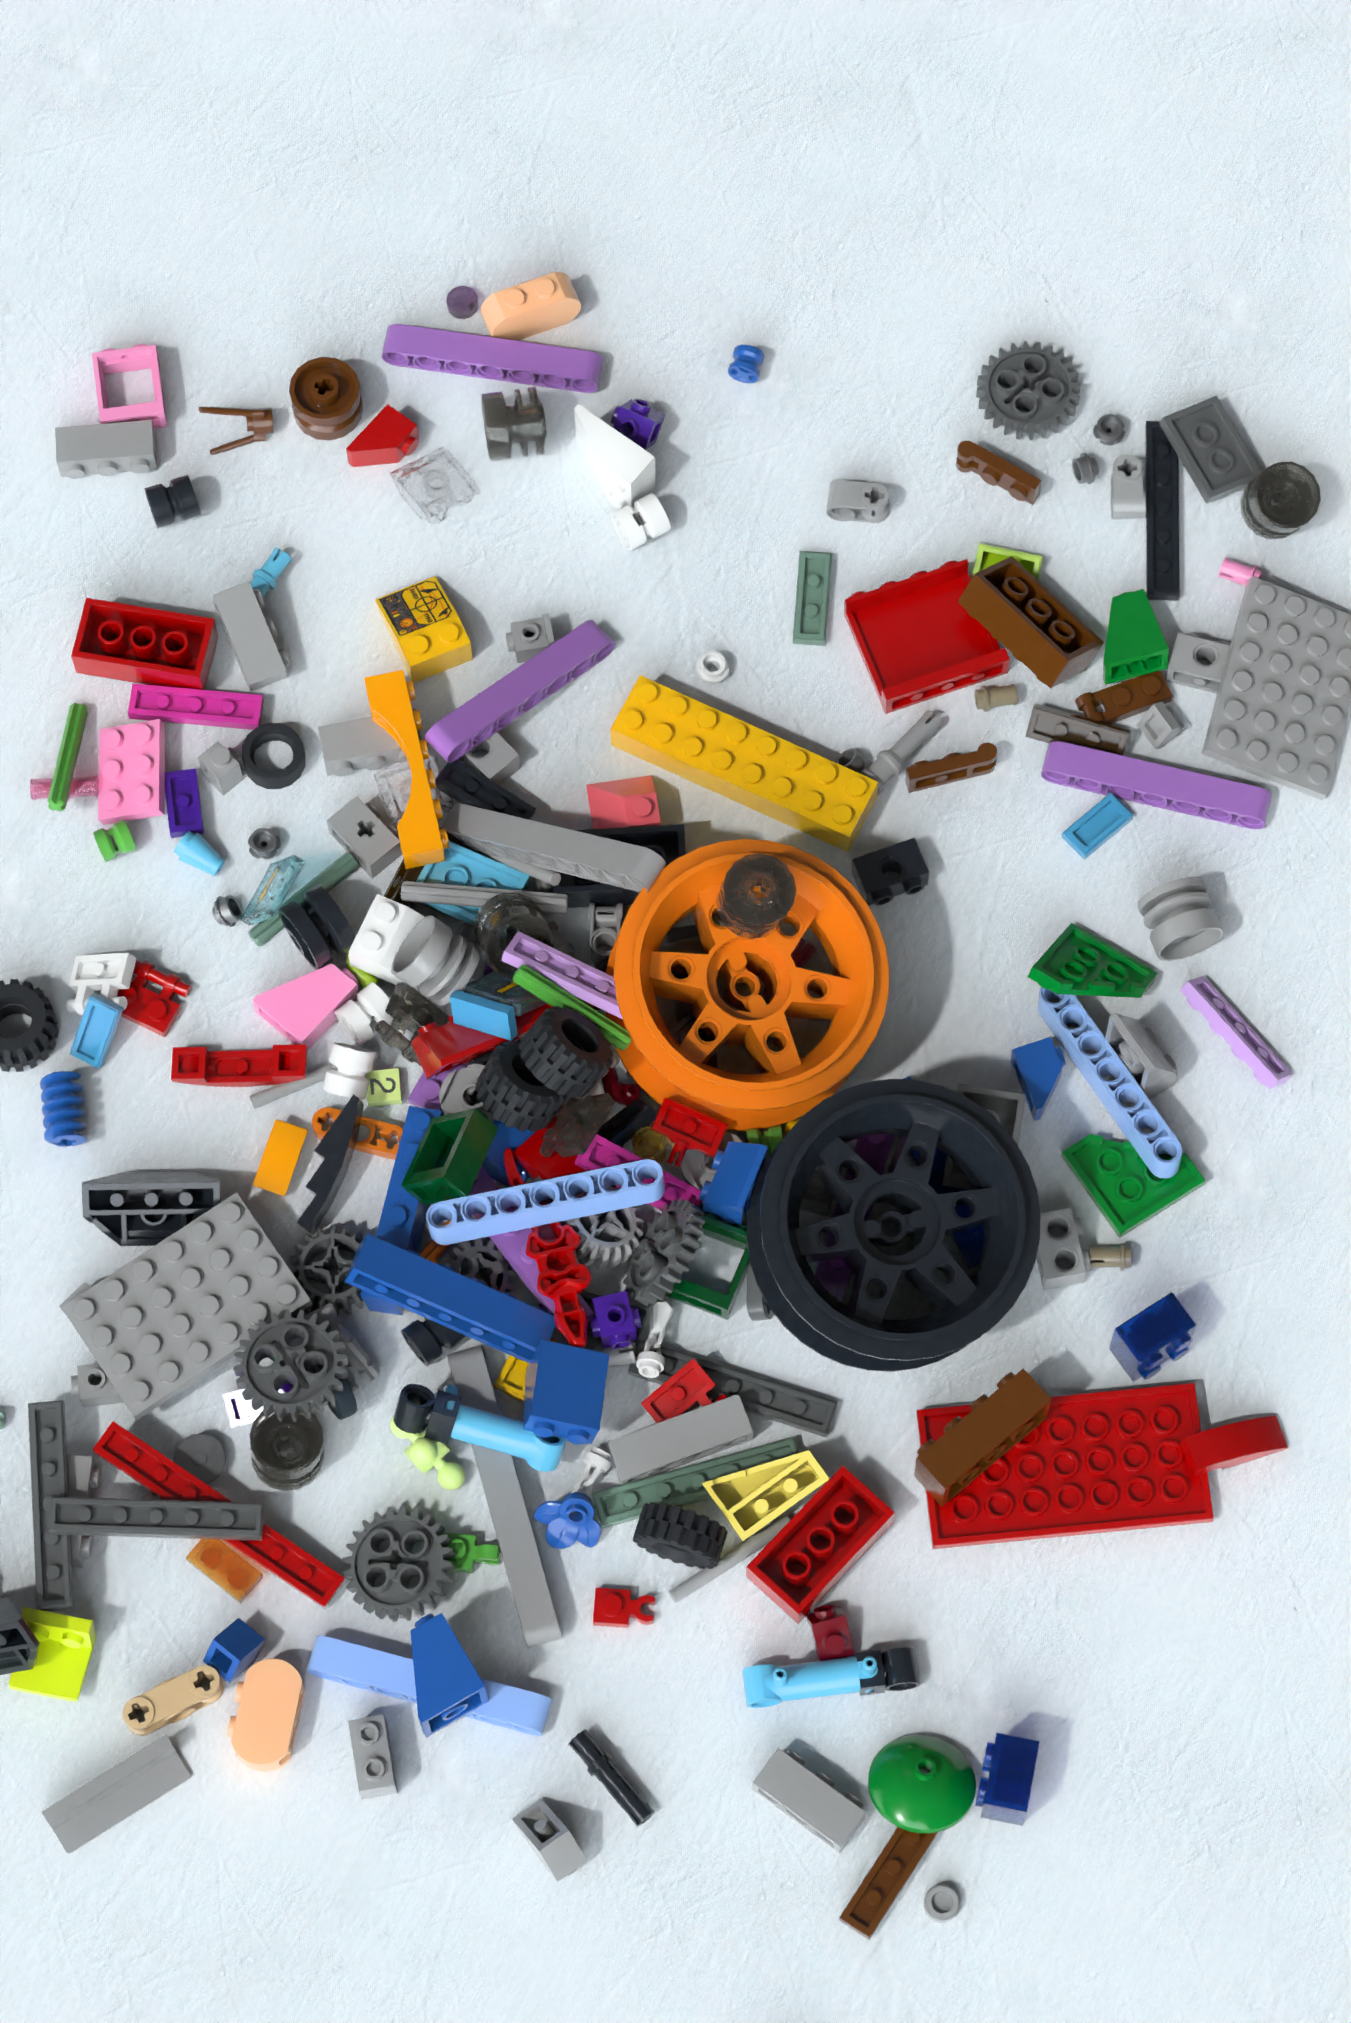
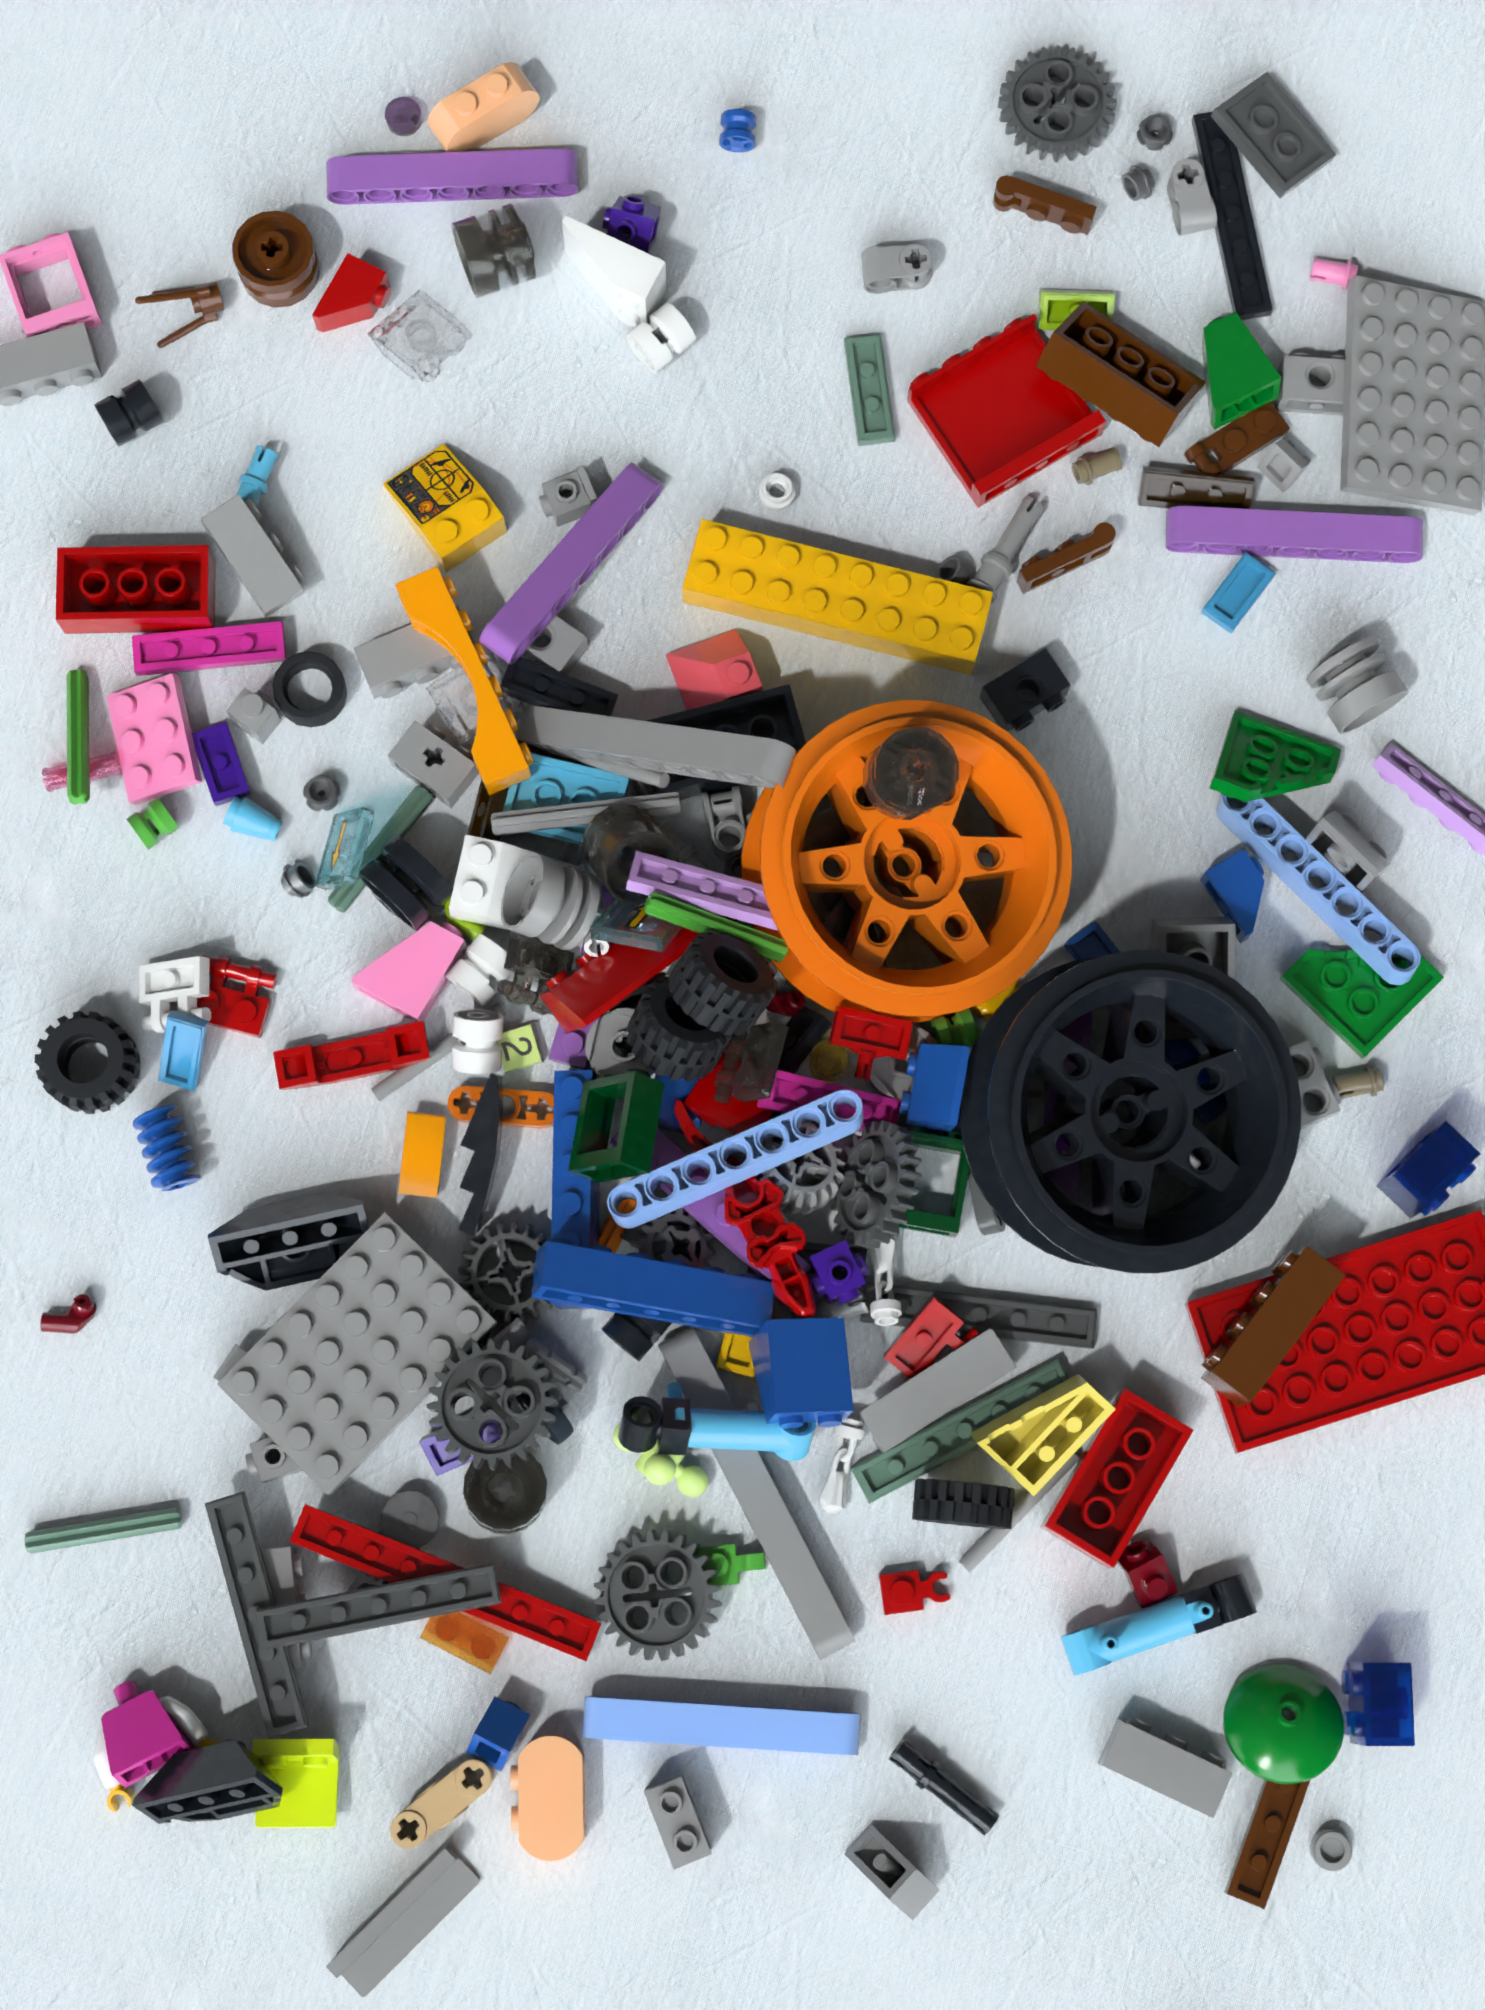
camera: 15 degrees left, 10 degrees up
(443, 1675) = (740, 1725): blue slope -> none
(483, 1015) = (619, 956): dark azure tile -> none
(569, 1521) = (836, 1508): plate -> none
(1283, 483) = (1383, 176): clear smoke wheel -> none

